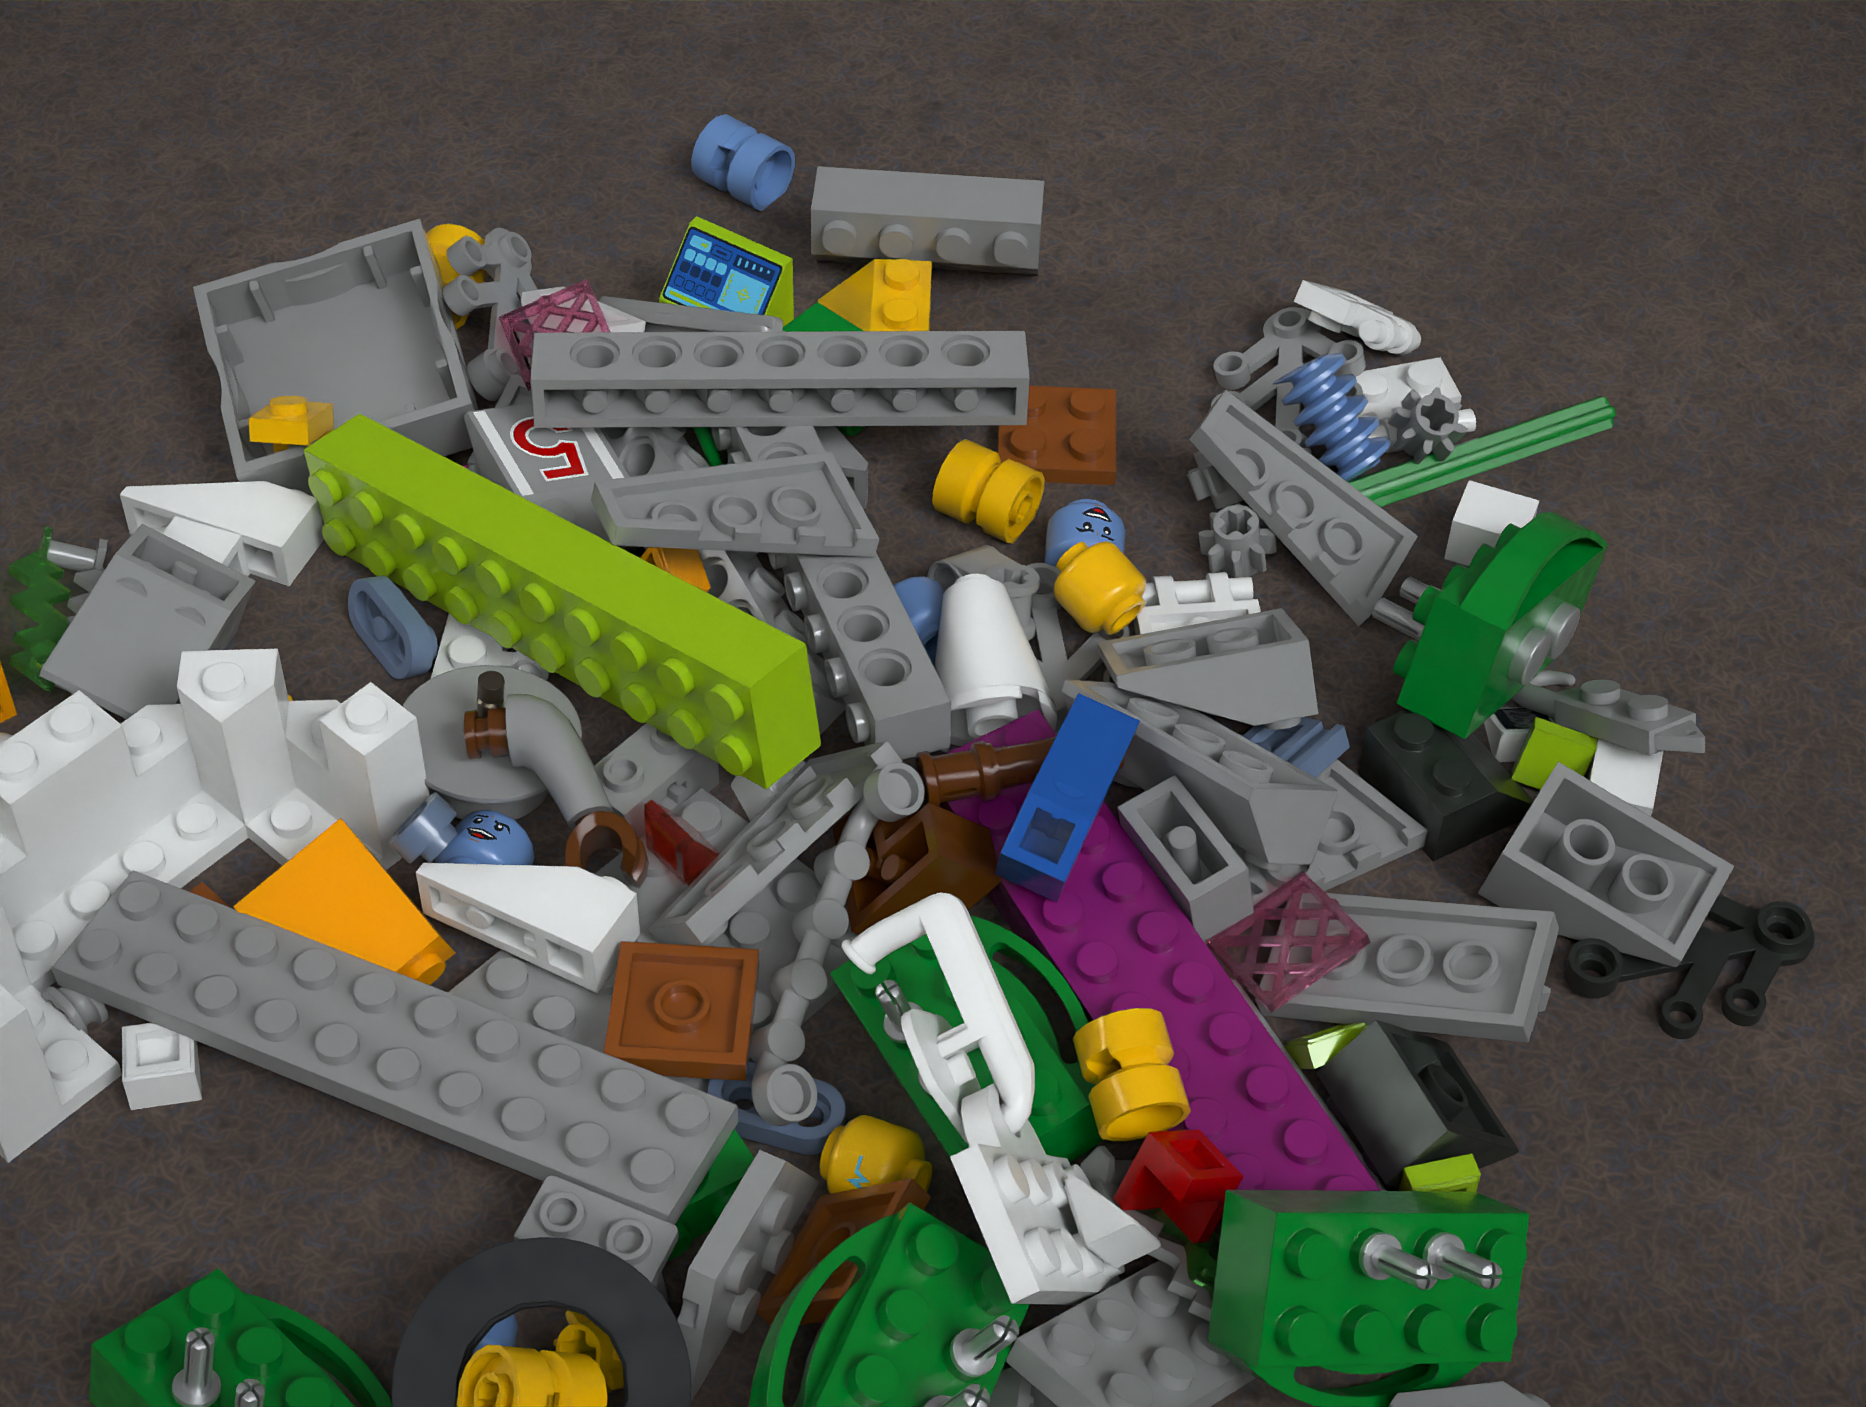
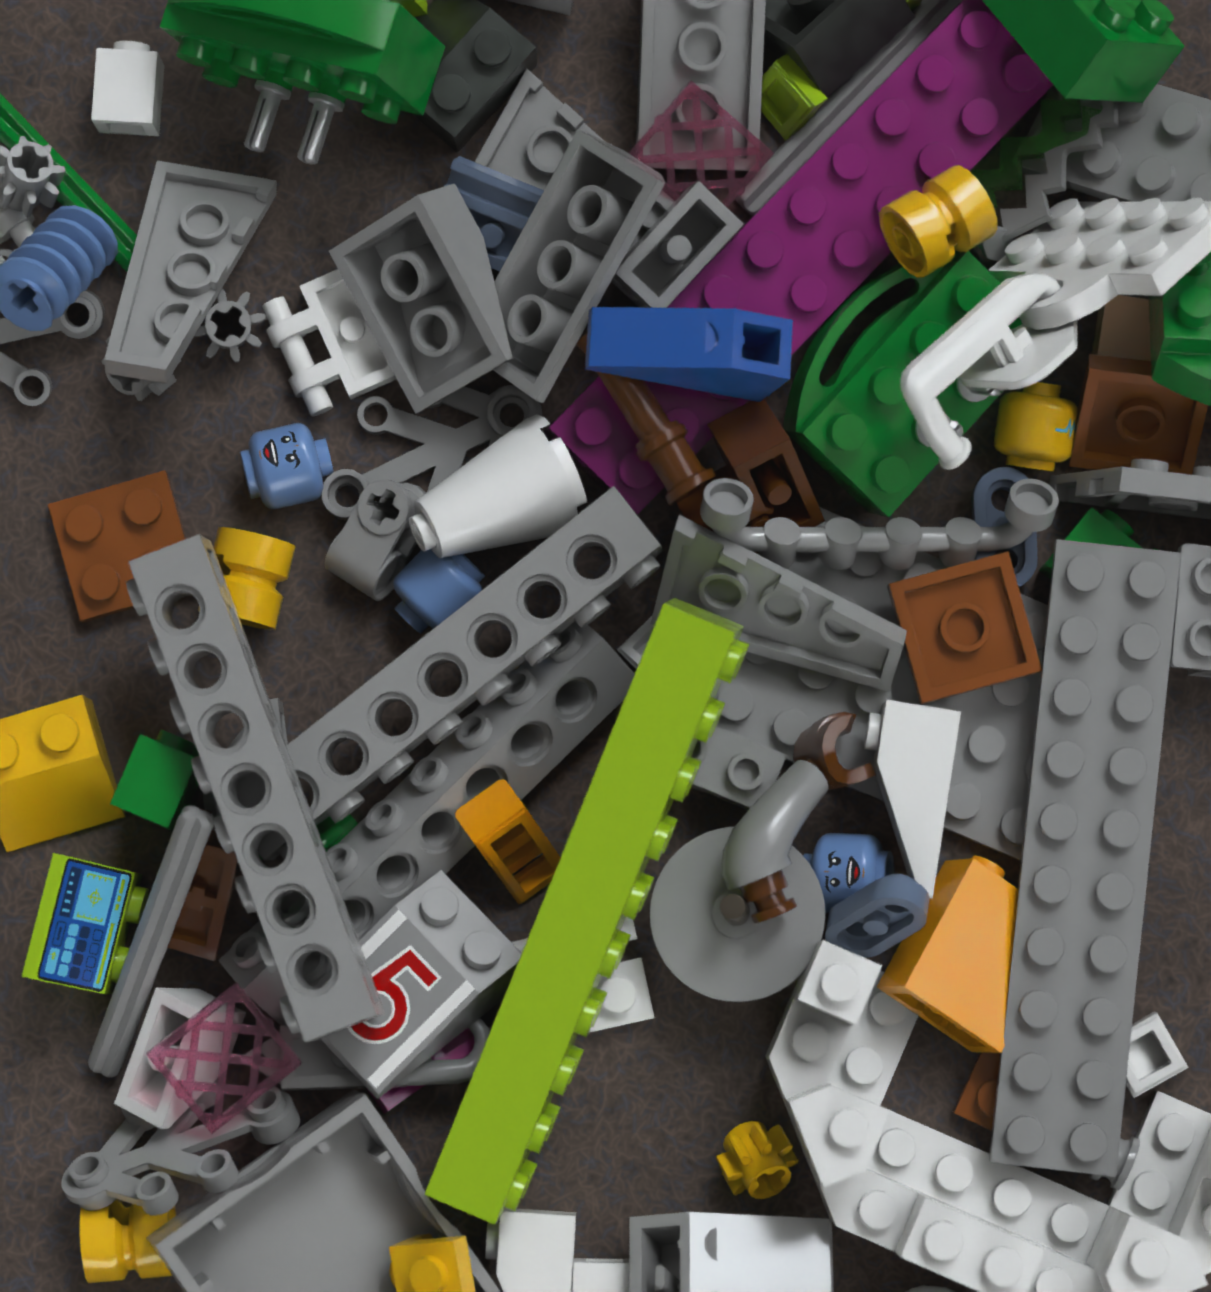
camera: 105 degrees left, 35 degrees up
(391, 627) = (624, 1063): sand blue plate -> none
(676, 843) = (784, 697): clear red slope -> none
(747, 506) = (457, 739): light grey wing -> none
(1099, 587) = (357, 426): yellow head -> none
(1105, 1227) = (1077, 202): white slope -> none
(1182, 1177) = (1003, 157): red panel -> none

